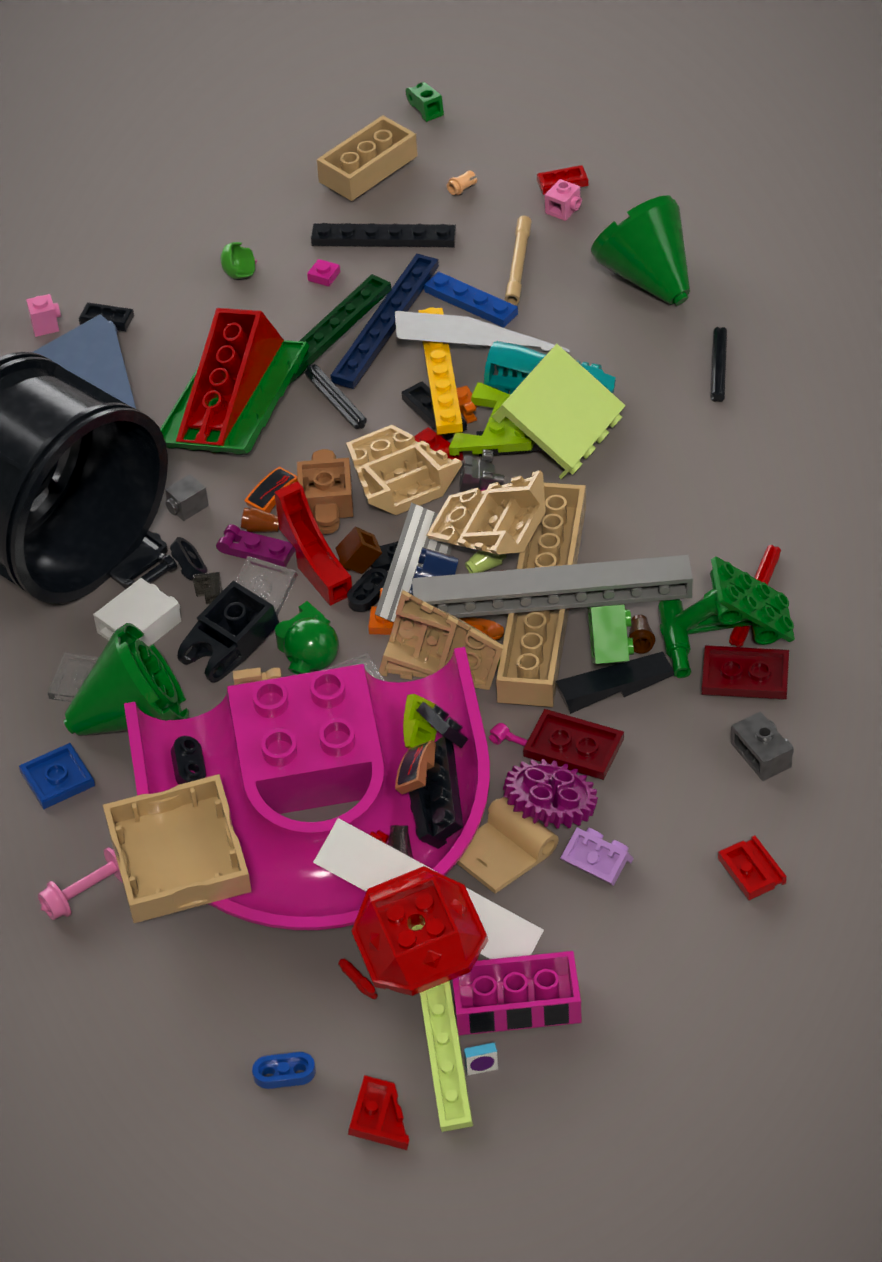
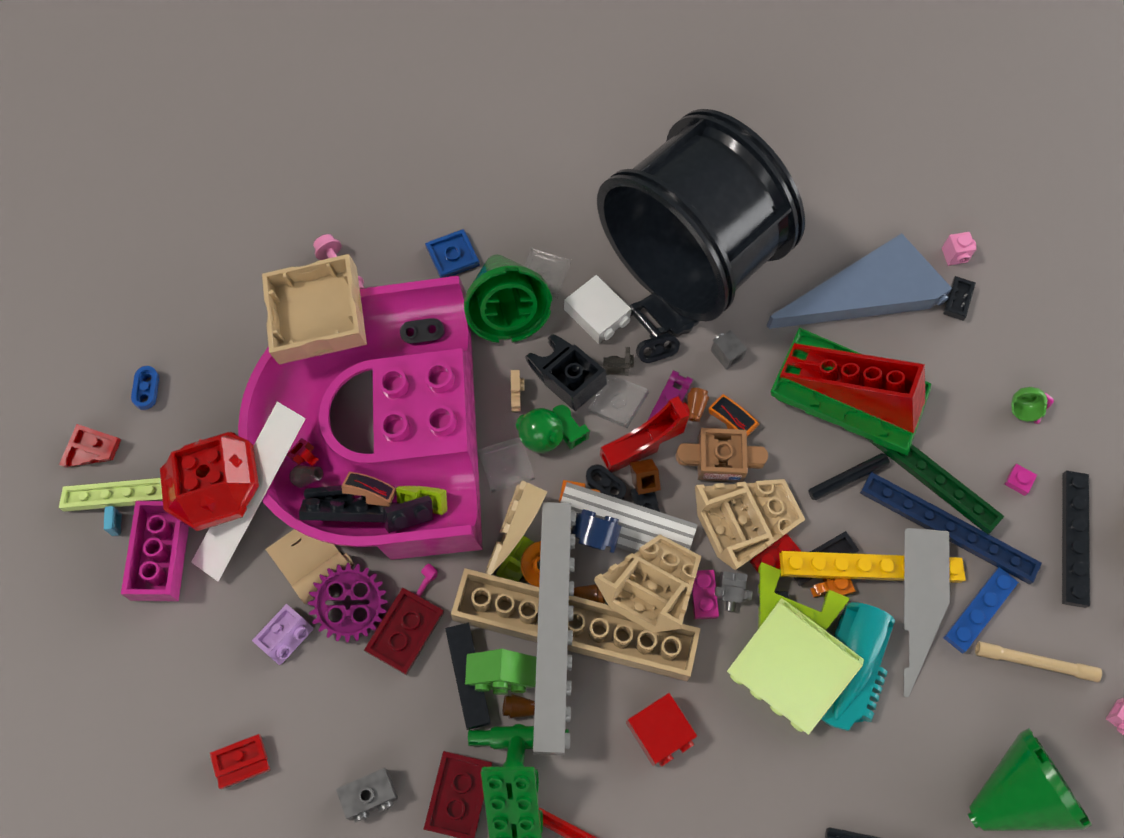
camera: 90 degrees right, 20 degrees up
(642, 515) = (662, 730): none -> red brick

